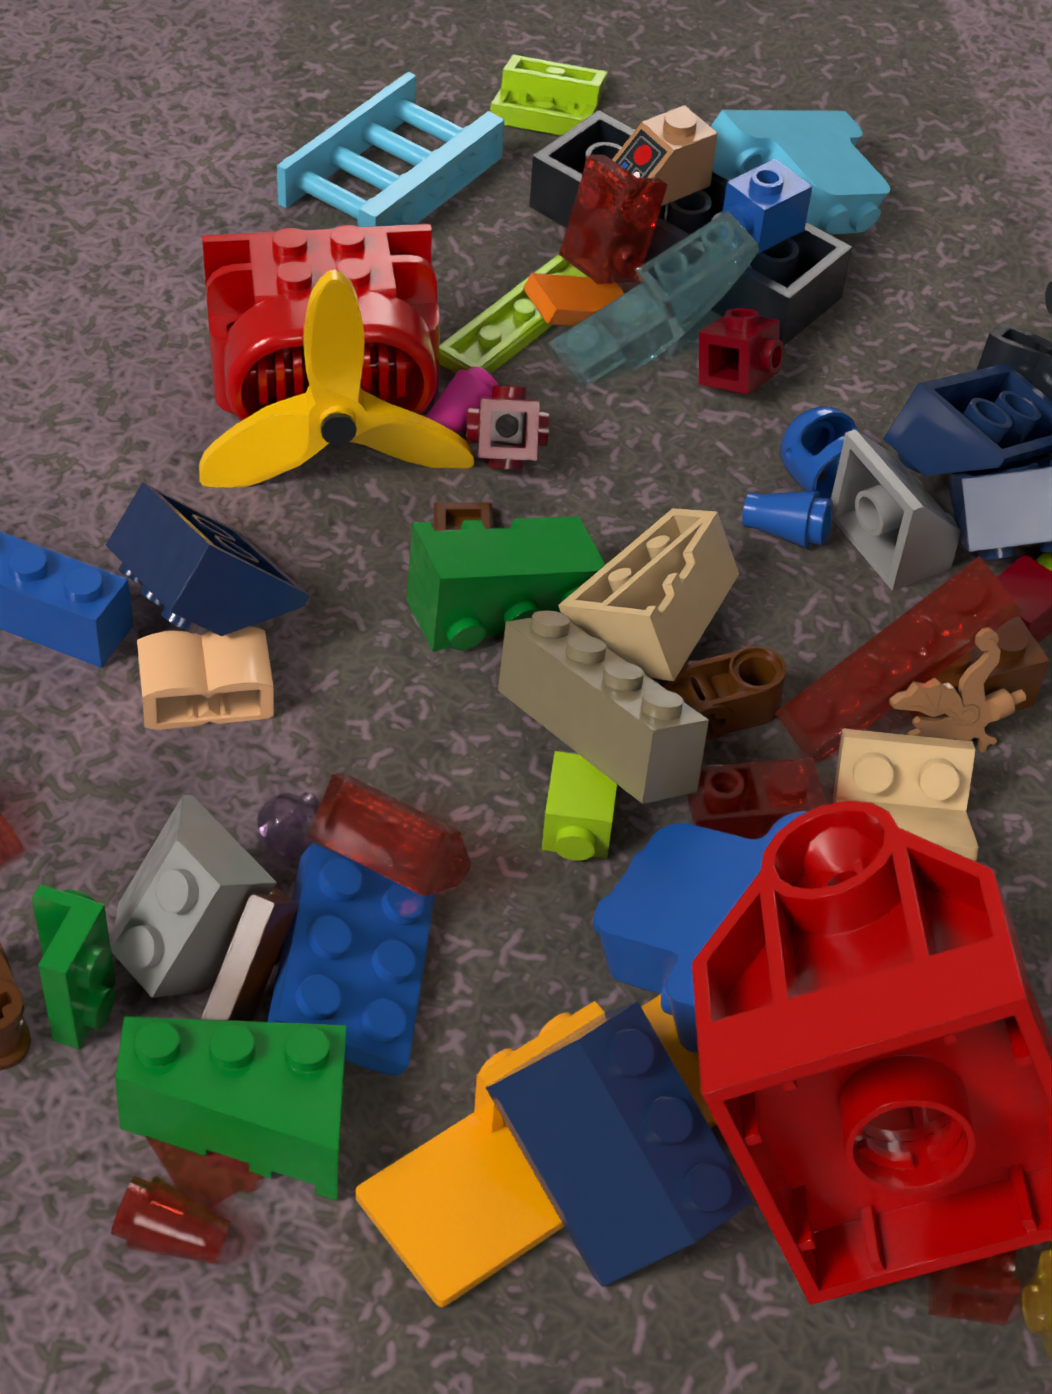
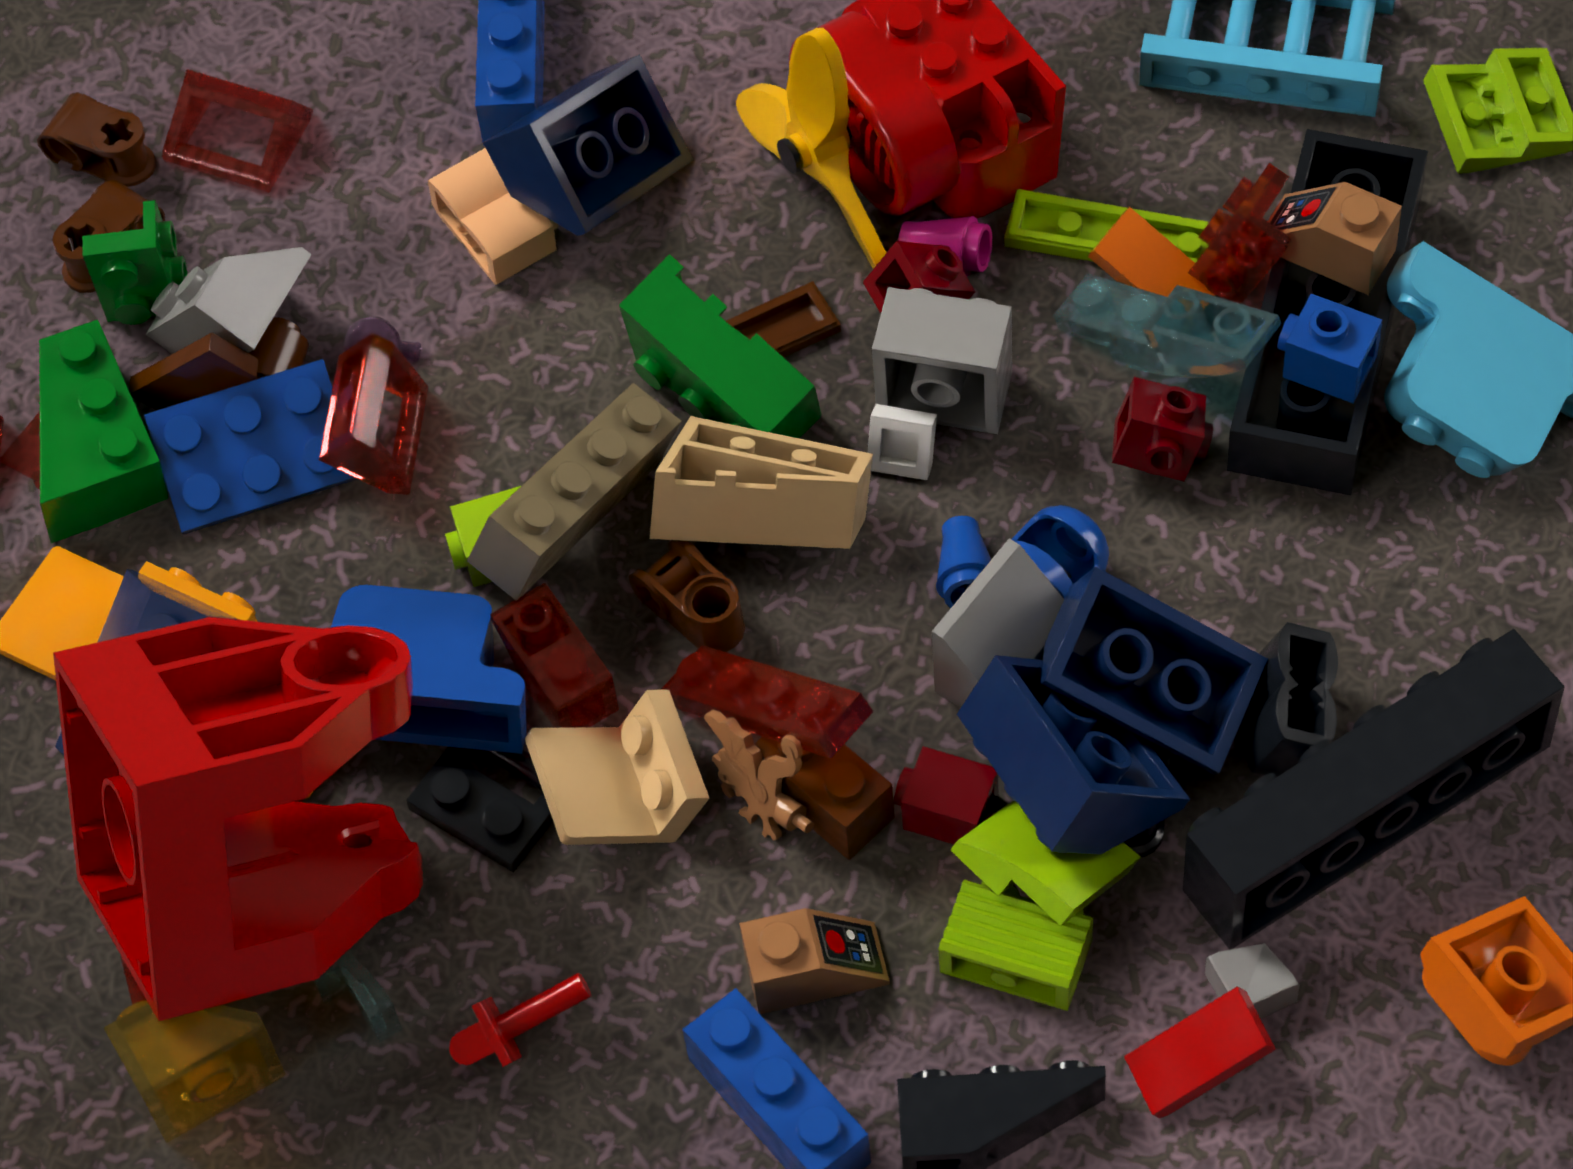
camera: 75 degrees right, 10 degrees up
(602, 432) = (944, 357): none -> light grey brick
(643, 499) = (902, 441): none -> white tile

